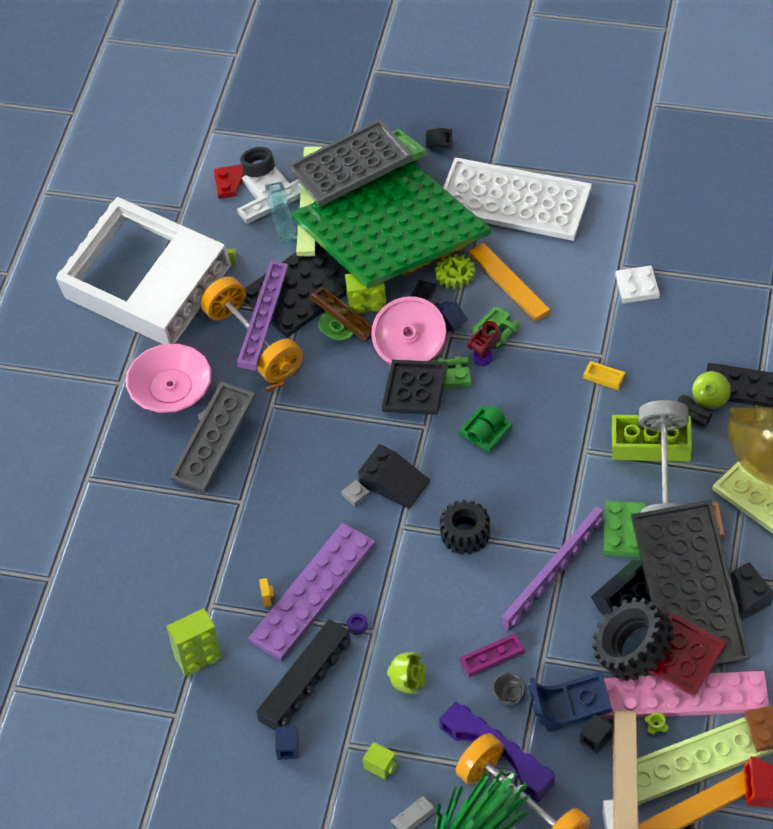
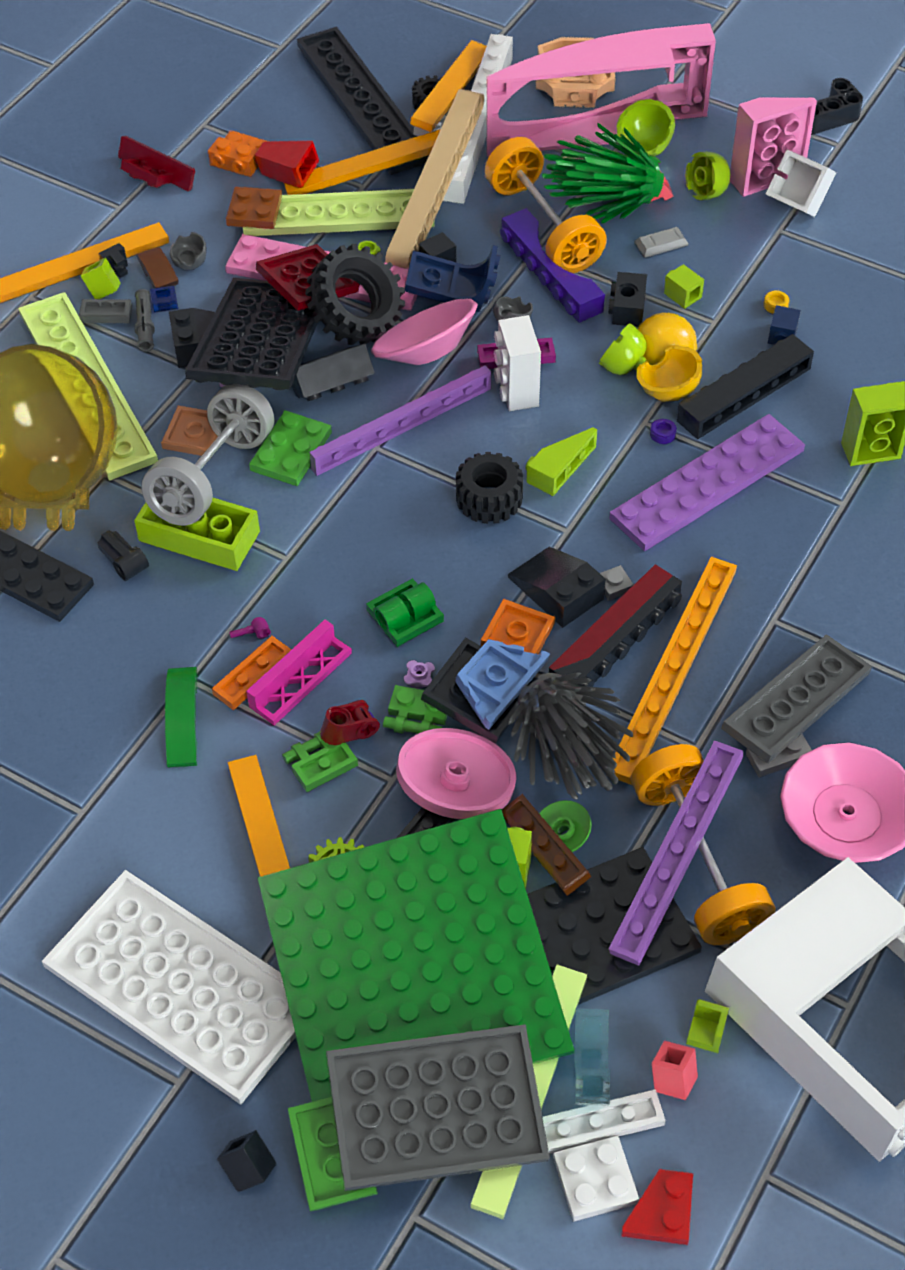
camera: 165 degrees left, 0 degrees up
(237, 225) = (674, 1070): none -> coral brick
(257, 169) = (624, 1184): black tyre -> none
(266, 591) = (768, 485): yellow plate -> none
(297, 446) = (674, 666): none -> light orange plate
(300, 776) = (775, 298): none -> yellow tile
(342, 453) = (620, 627): none -> brick
(347, 353) = (558, 715): none -> dark grey plant
(363, 654) = (673, 376): none -> yellow cylinder
(380, 703) = (664, 331): none -> yellow cylinder
(404, 388) = (497, 677): none -> medium blue wing
(407, 436) = (519, 626): none -> orange plate
(421, 745) = (629, 298): none -> black brick
(424, 567) = (559, 461): none -> lime slope
(452, 314) = (386, 795): dark blue slope -> none
(459, 398) = (419, 680): none -> lavender plate
(479, 614) = (517, 363): none -> white brick
(538, 375) = (289, 669): none -> dark pink fence
(563, 363) = (233, 687): none -> orange plate
(575, 395) = (258, 626): none -> magenta hand
(576, 618) = (426, 334): none -> bright pink dish
(596, 330) = (181, 717): none -> green slope
(604, 375) = (205, 646): yellow tile -> none
(637, 284) = (77, 769): white plate -> none
(711, 390) = (82, 559): lime cylinder -> none

